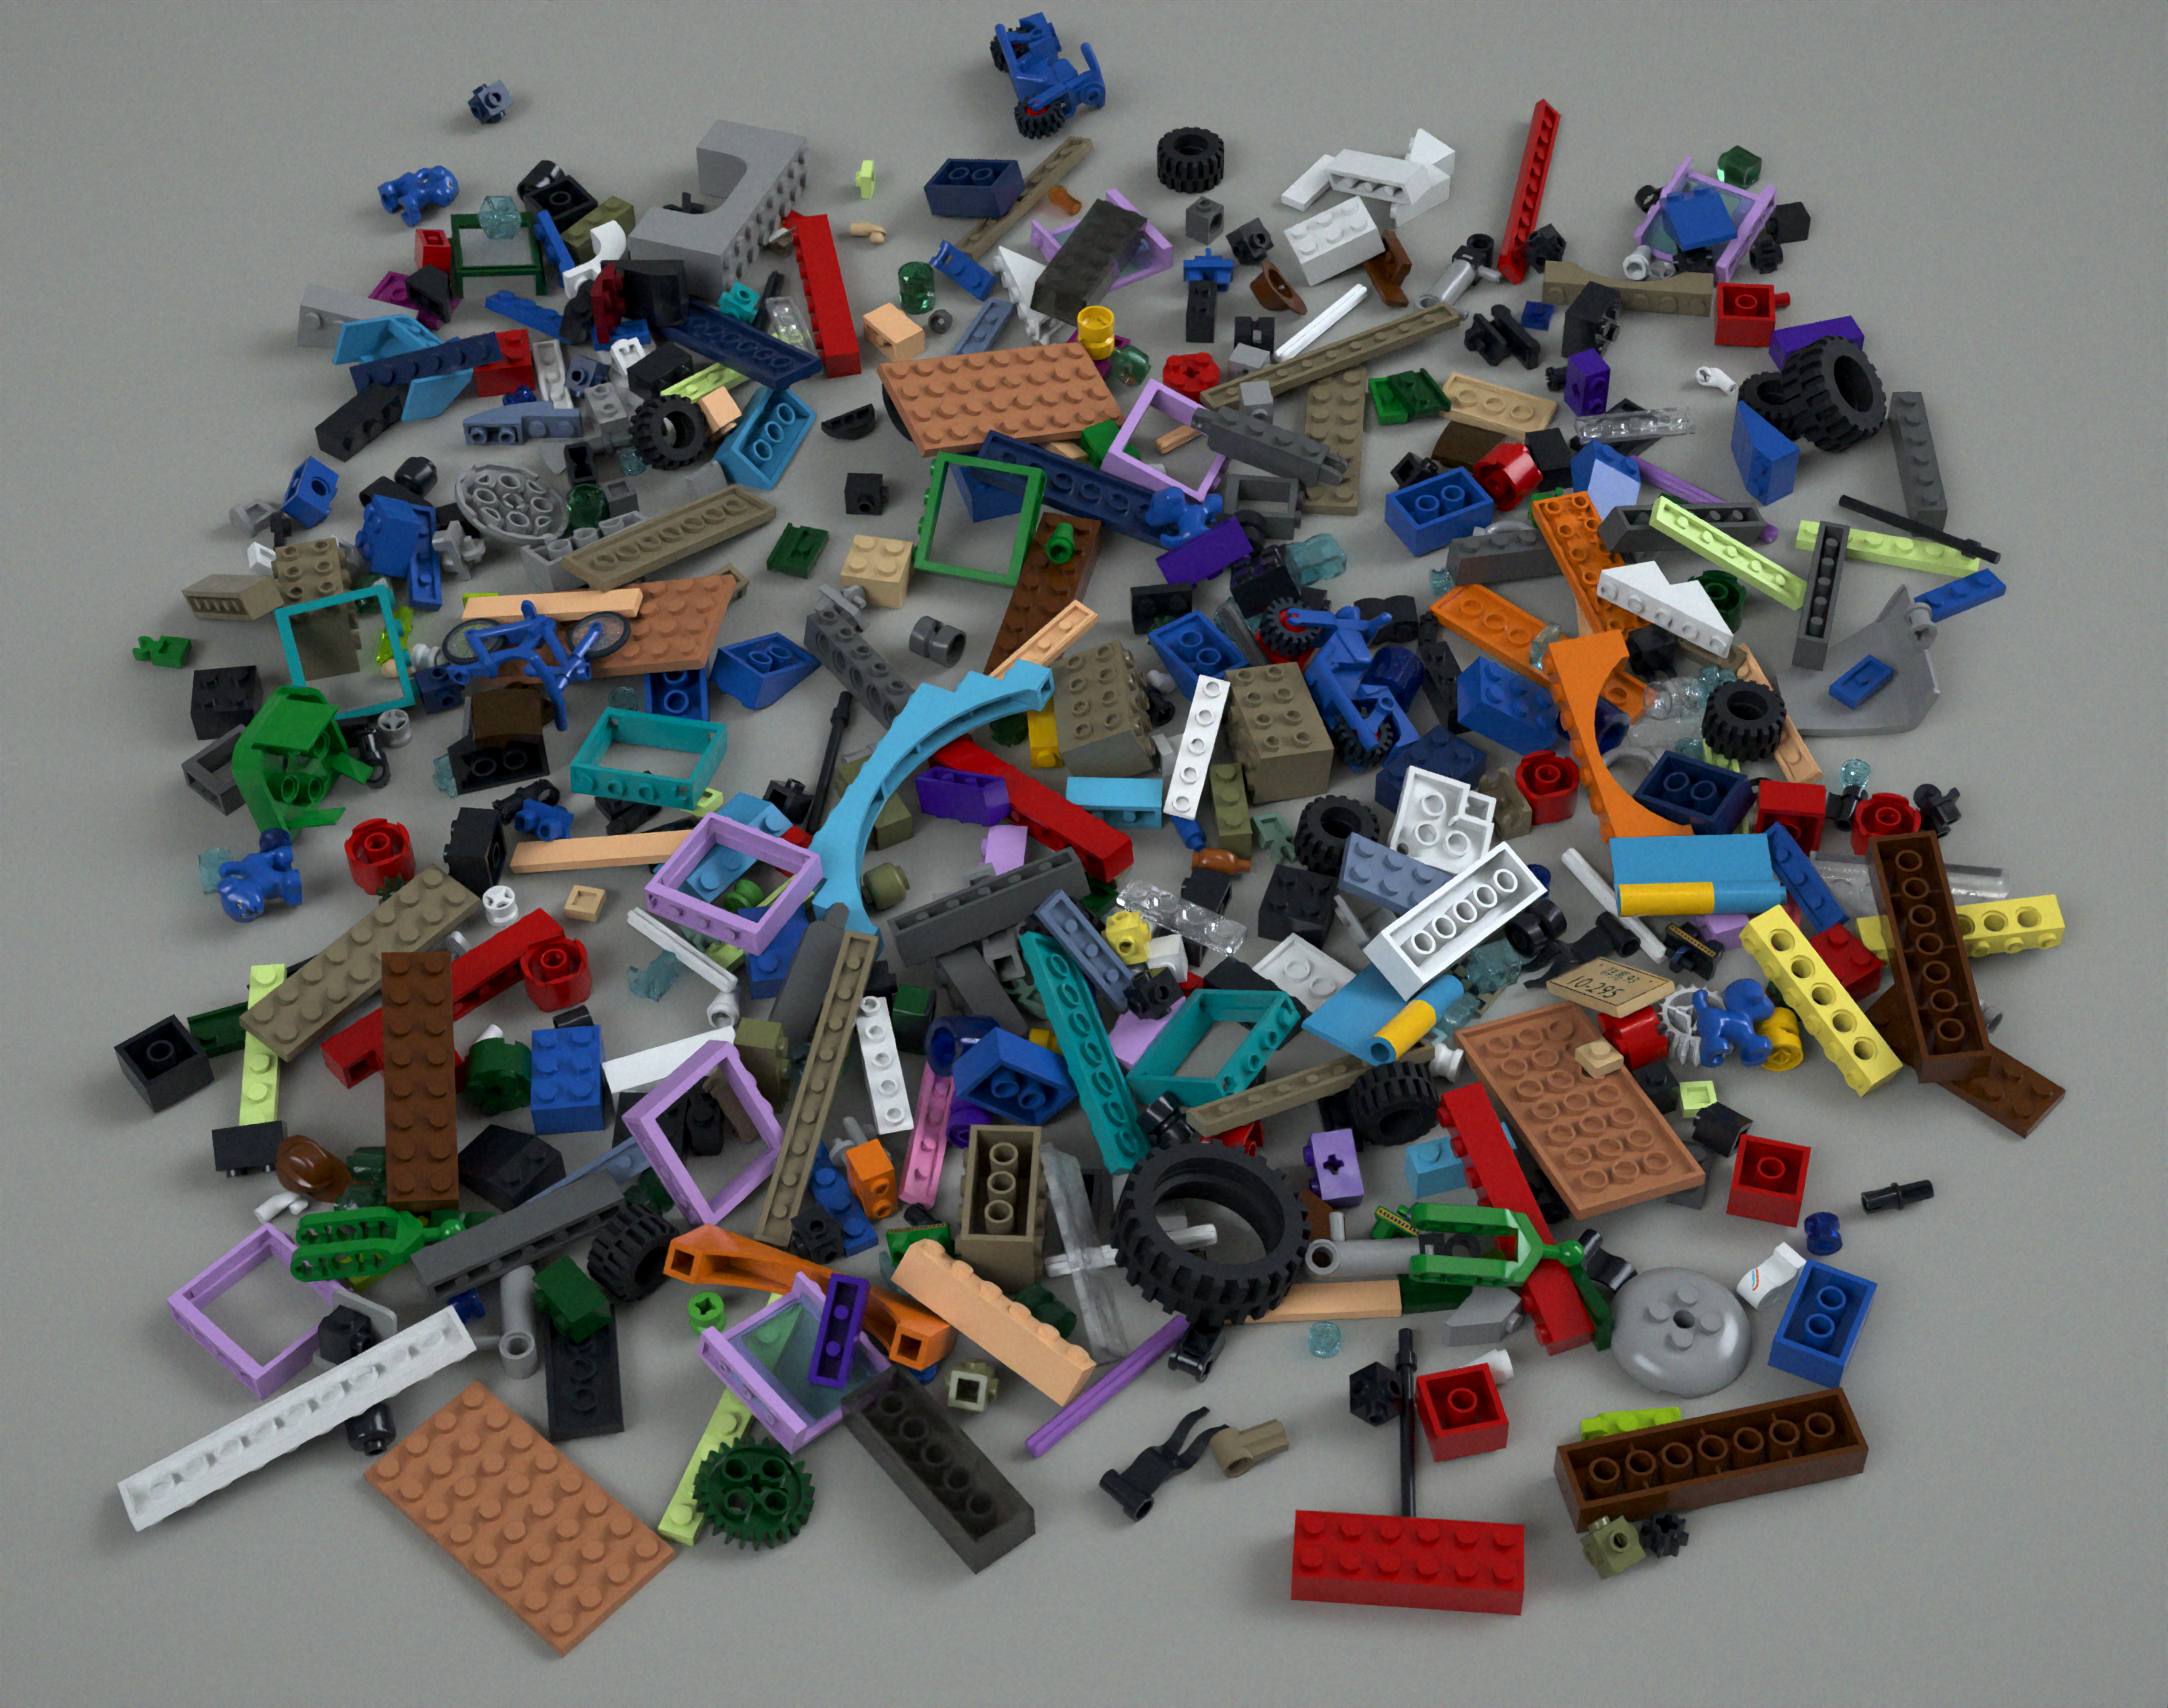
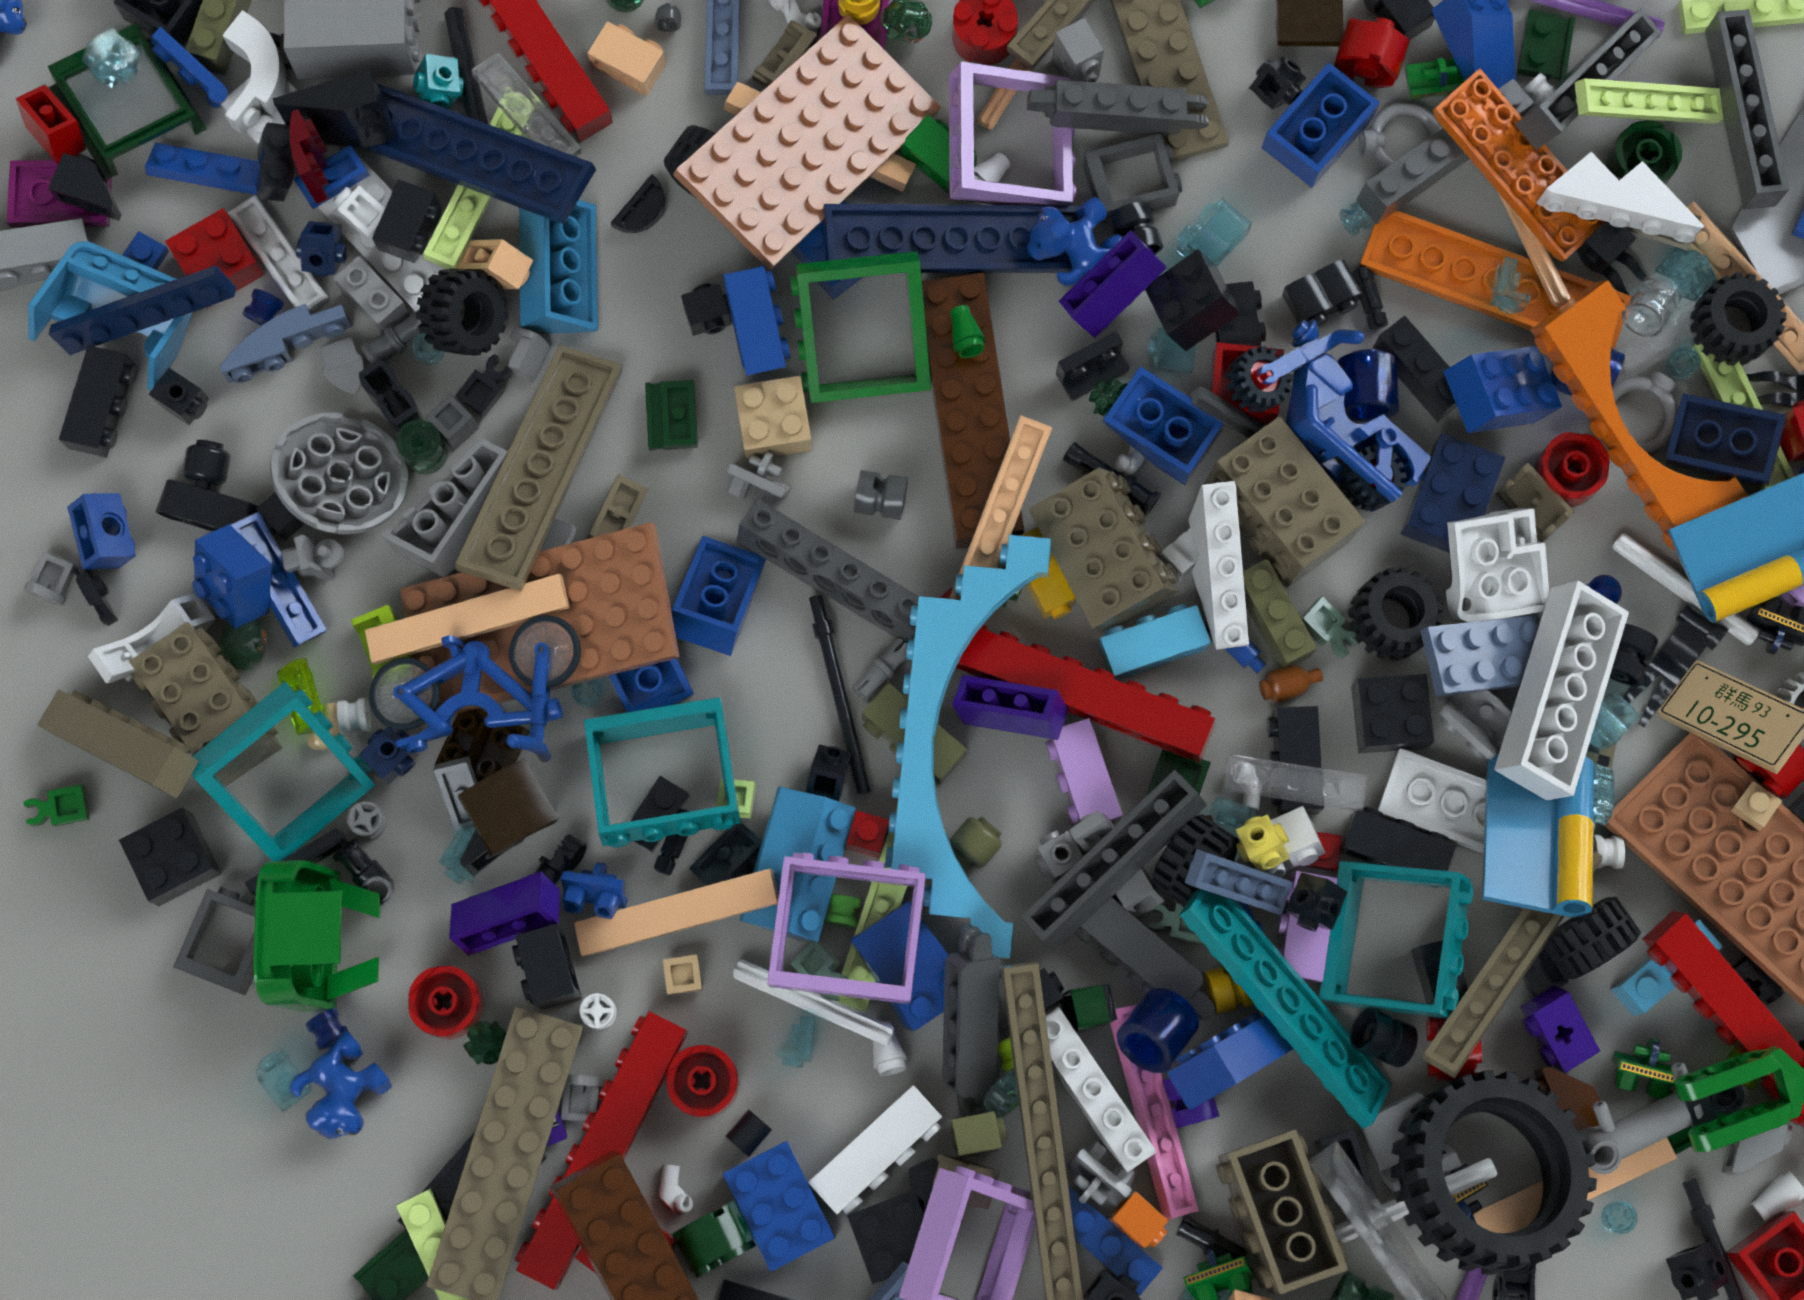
camera: 25 degrees left, 30 degrees up
(422, 432) = (179, 396): none -> black brick
(440, 808) = (503, 913): none -> dark purple brick
(660, 495) = (482, 390): none -> black plate
(896, 491) = (756, 319): none -> blue brick

